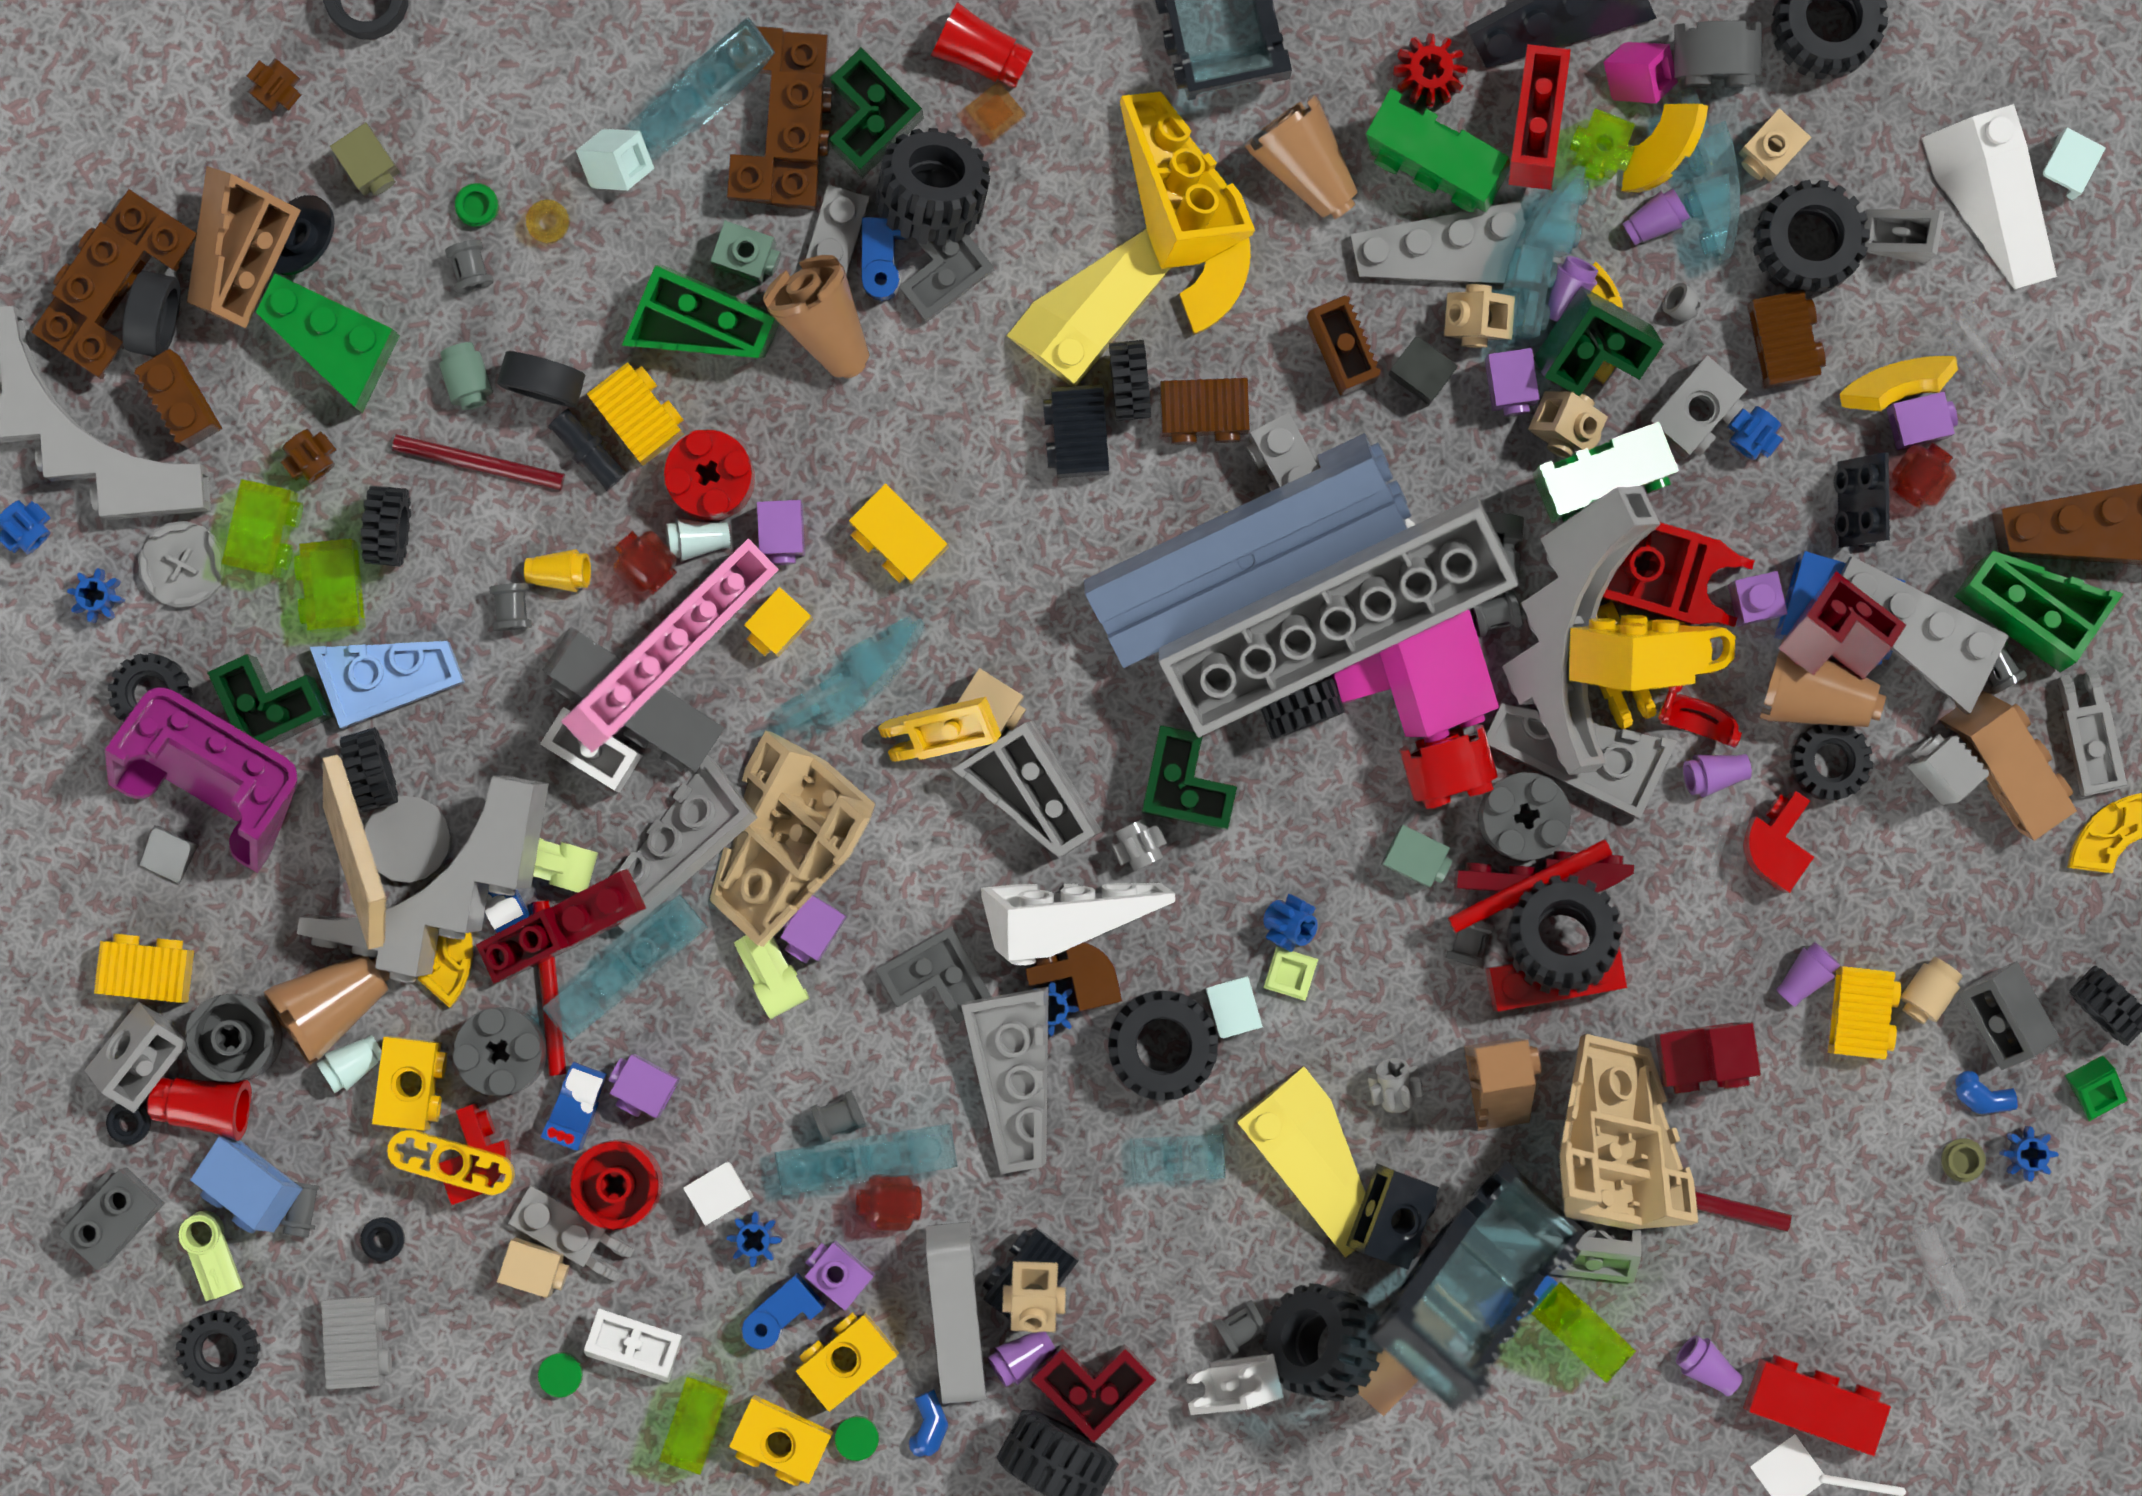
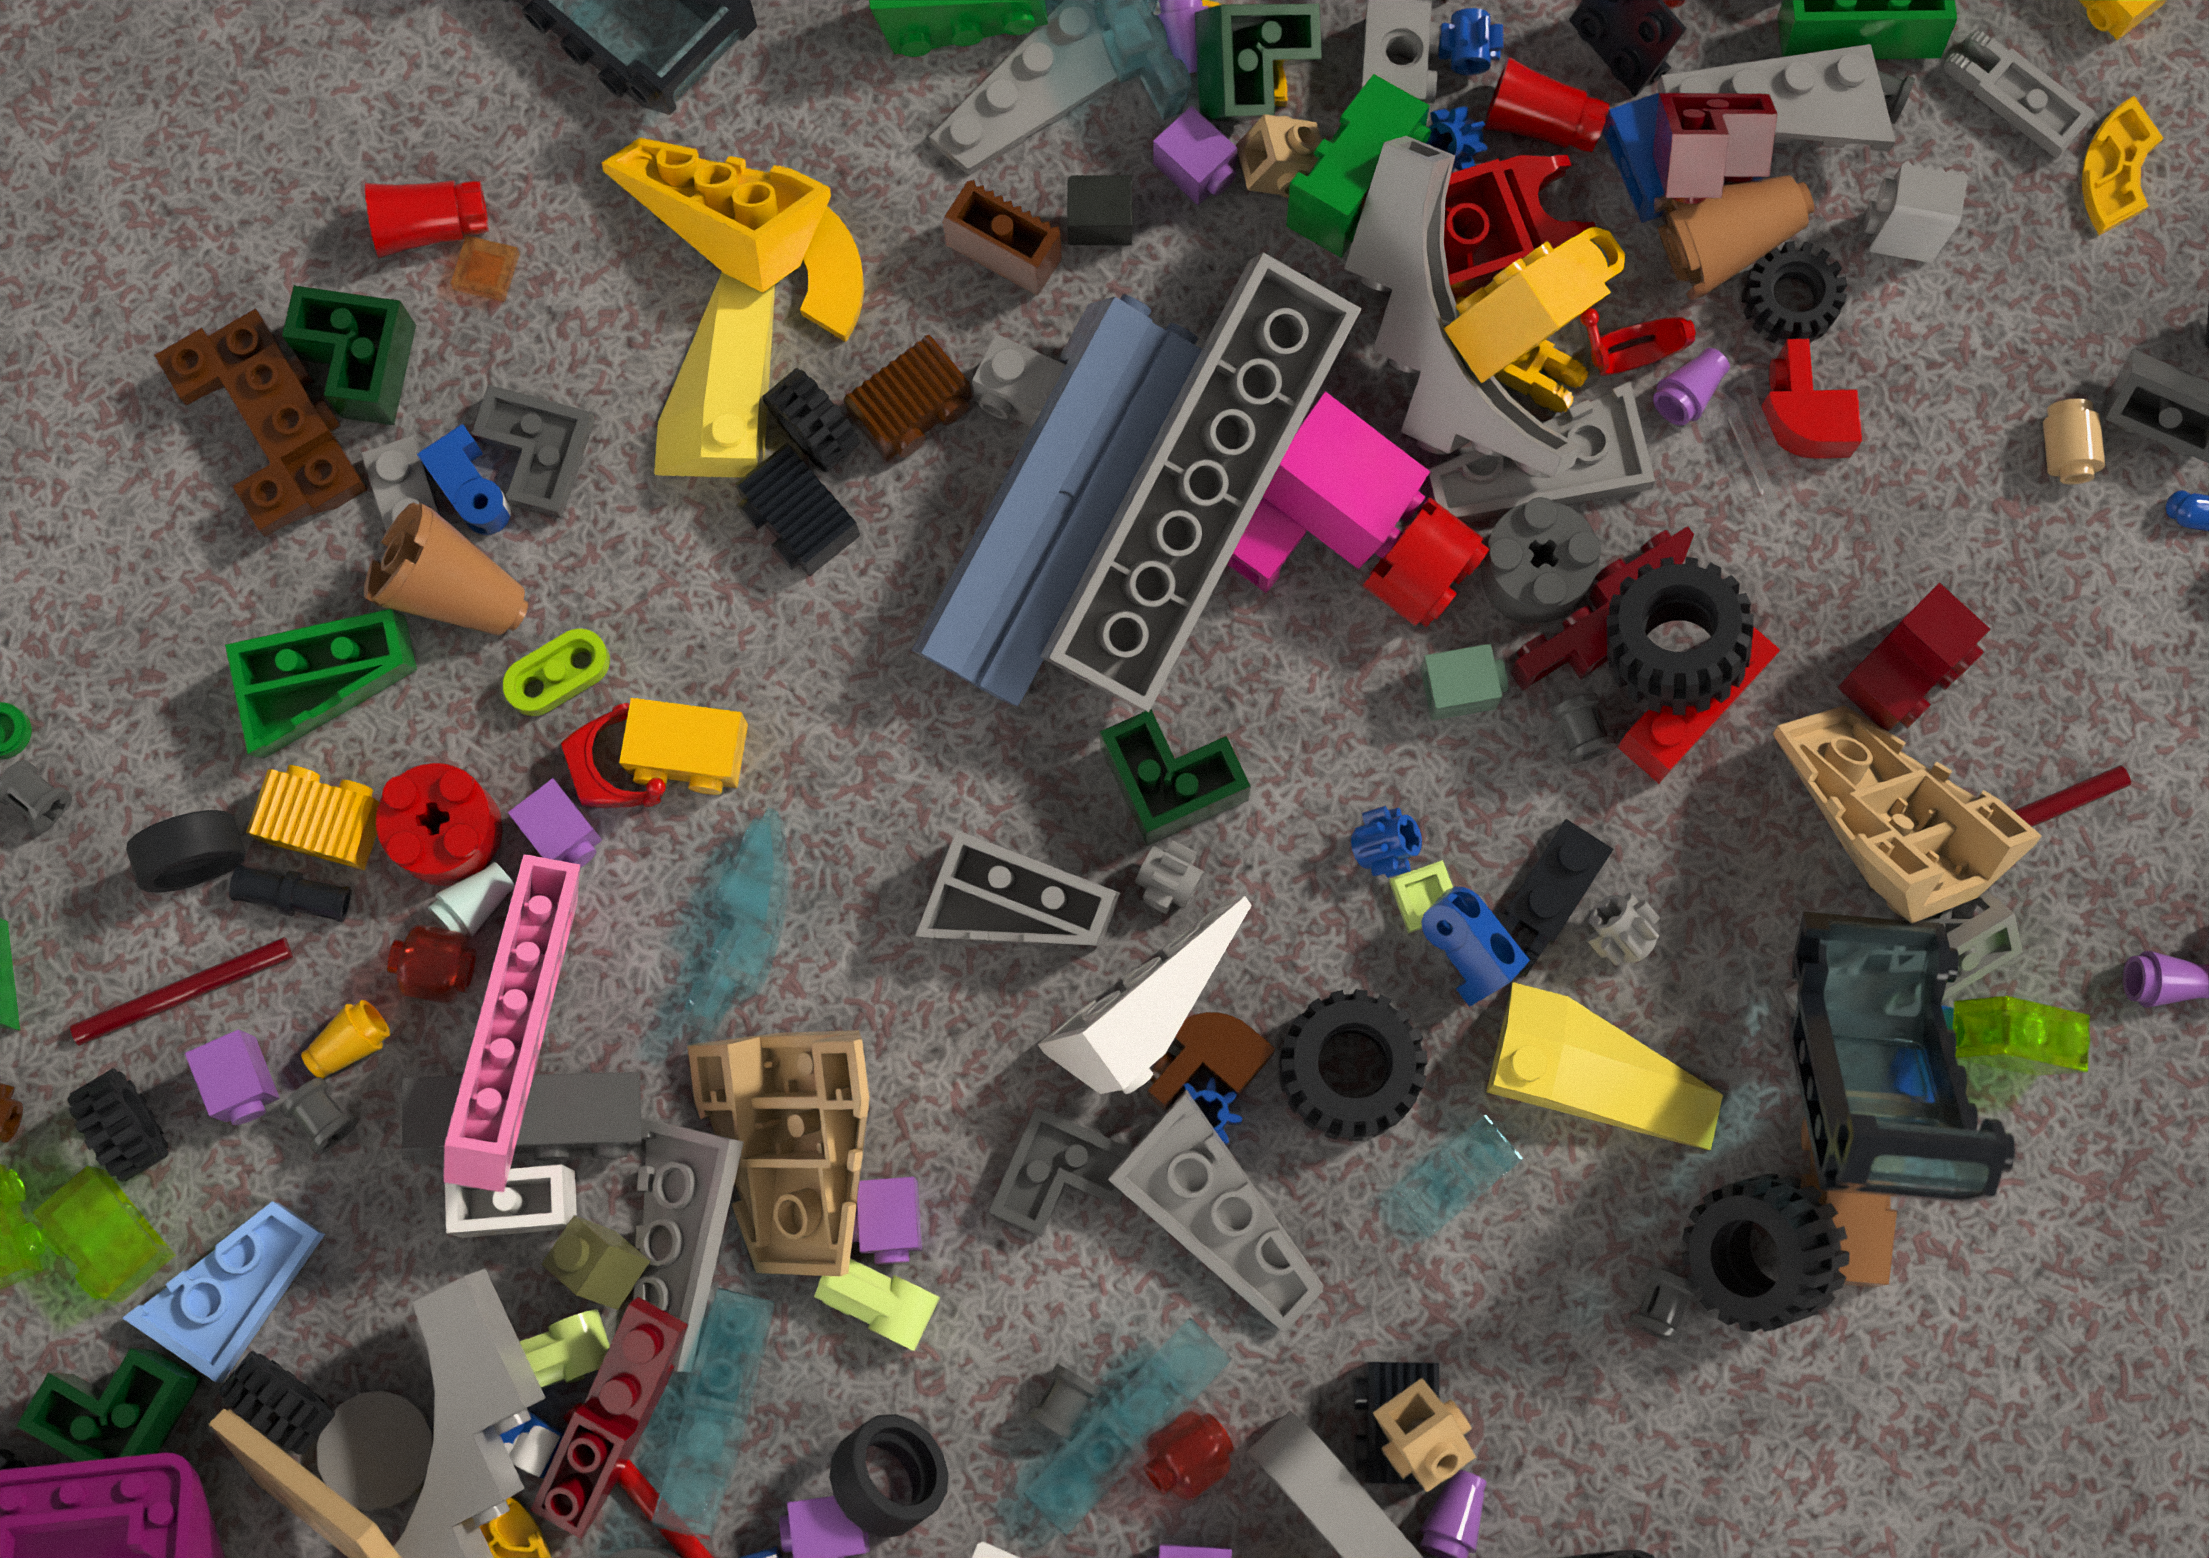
camera: 35 degrees left, 10 degrees down
(465, 376) = (104, 910): sand green brick -> none
(474, 546) = (233, 1078): none -> medium lavender brick
(540, 209) = (76, 682): clear yellow plate -> none
(615, 159) = (117, 581): light aqua panel -> none
(616, 825) = (595, 1262): none -> olive brick
(676, 1083) = (857, 1492): none -> black tyre
(704, 89) = (164, 440): clear light blue slope -> none
(745, 253) = (319, 577): sand green brick -> none
(777, 623) = (620, 925): yellow brick -> none
(821, 514) = (589, 785): none -> red helmet
(852, 424) = (555, 668): none -> lime plate
(937, 161) = (466, 370): black tyre -> none
(942, 730) = (876, 904): yellow hinge -> none
(1001, 698) = (906, 843): tan brick -> none
(1095, 1399) = (1574, 1499): dark red brick -> none
(1234, 1007) = (1395, 969): light aqua panel -> none
(1236, 1385) = (1709, 1369): white hinge -> none
(1294, 1026) = (1473, 943): none -> blue leg
(1302, 709) = (1232, 615): black tyre -> none
(1307, 158) = (831, 90): medium nougat cone -> none
(1371, 1029) = (1556, 887): none -> black hinge
(1385, 1195) = (1717, 1091): black brick -> none
(1479, 316) = (1116, 118): tan brick -> none
(1497, 614) = (1358, 383): dark grey bush -> none
(1502, 1081) = (1732, 836): medium nougat wedge -> none
(1513, 893) = (1596, 630): red bar -> none
(1690, 493) = (1464, 132): none -> blue gear
(1757, 598) = (1599, 188): medium lavender brick -> none
(1766, 516) = (1544, 109): none -> red plant
(1808, 973) = (1940, 512): medium lavender cone -> none
(1863, 1012) = (2026, 510): yellow brick -> none
(2016, 764) = (2008, 179): medium nougat wedge -> none

